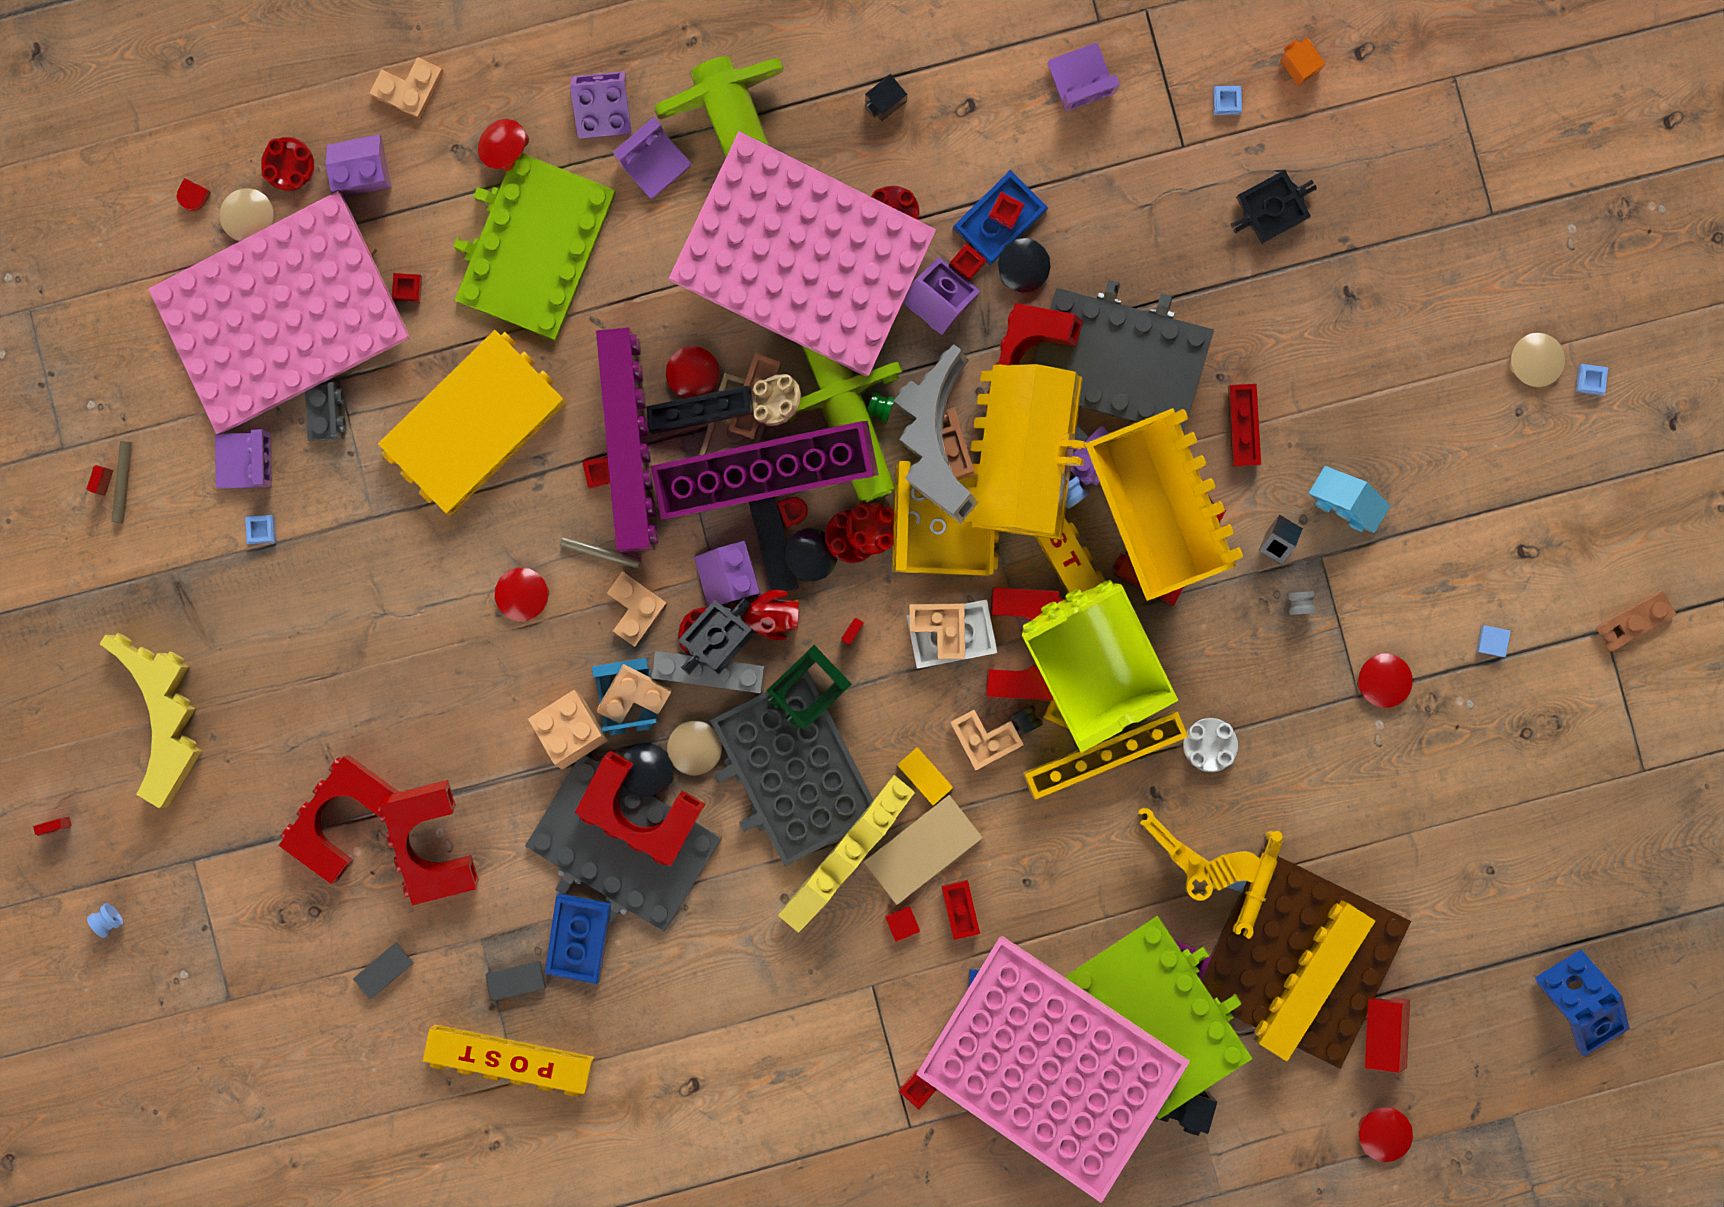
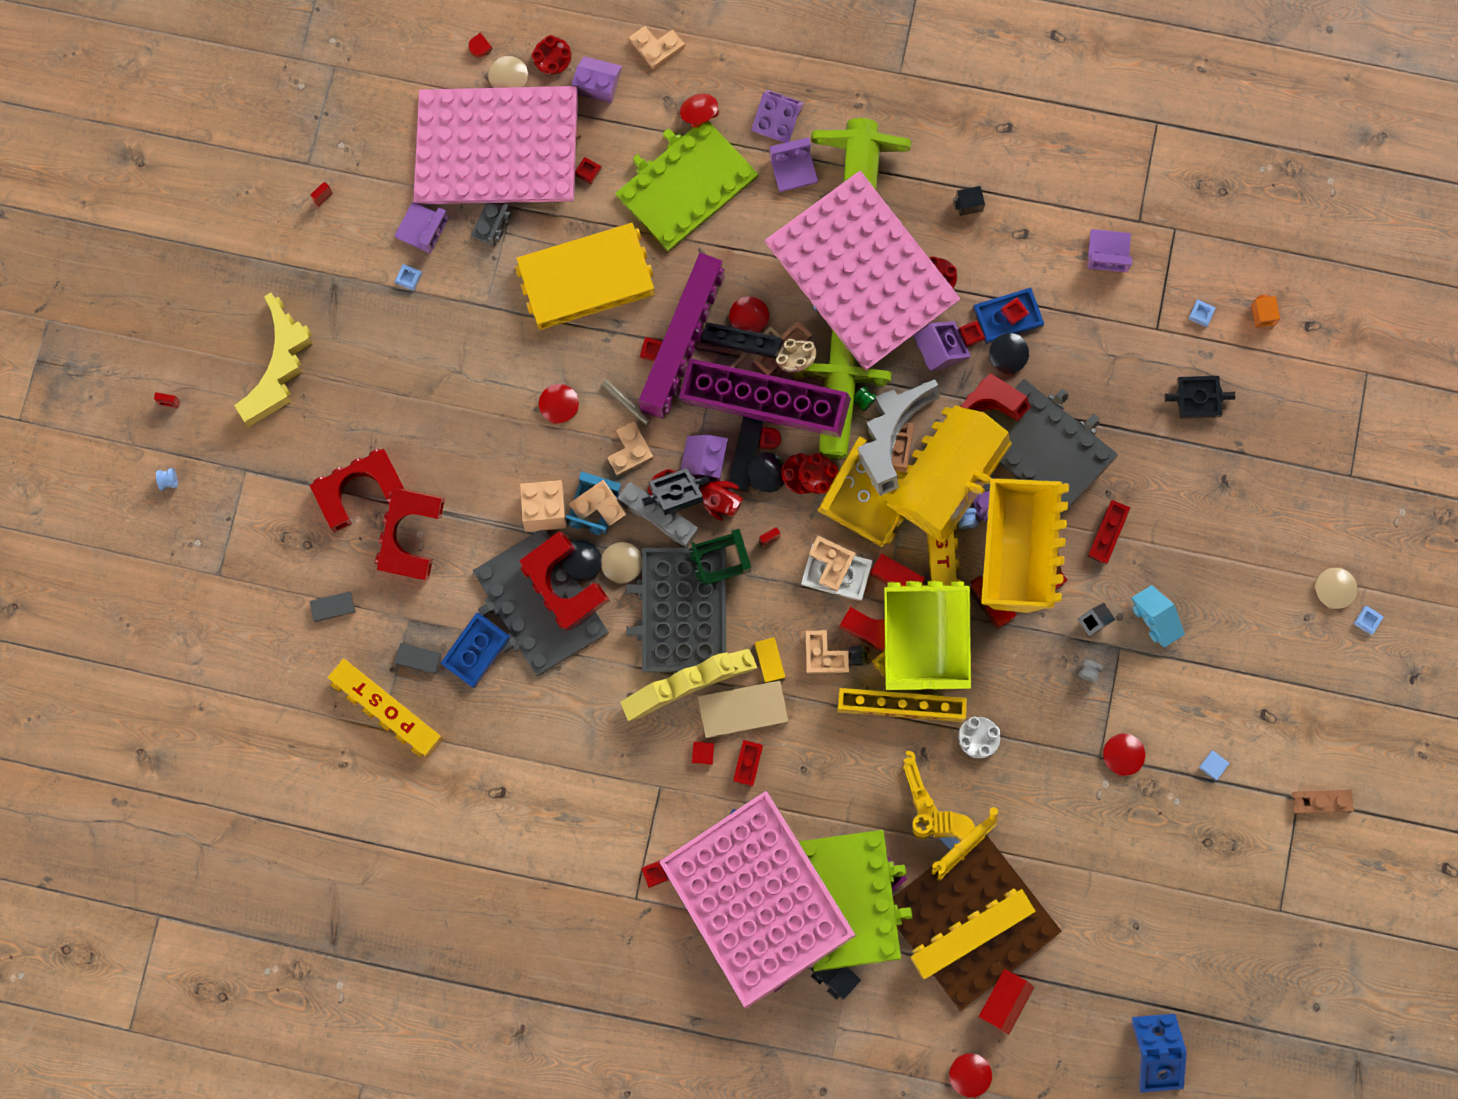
camera: 30 degrees right, 10 degrees down
(121, 482) = (334, 203): dark tan bar -> none

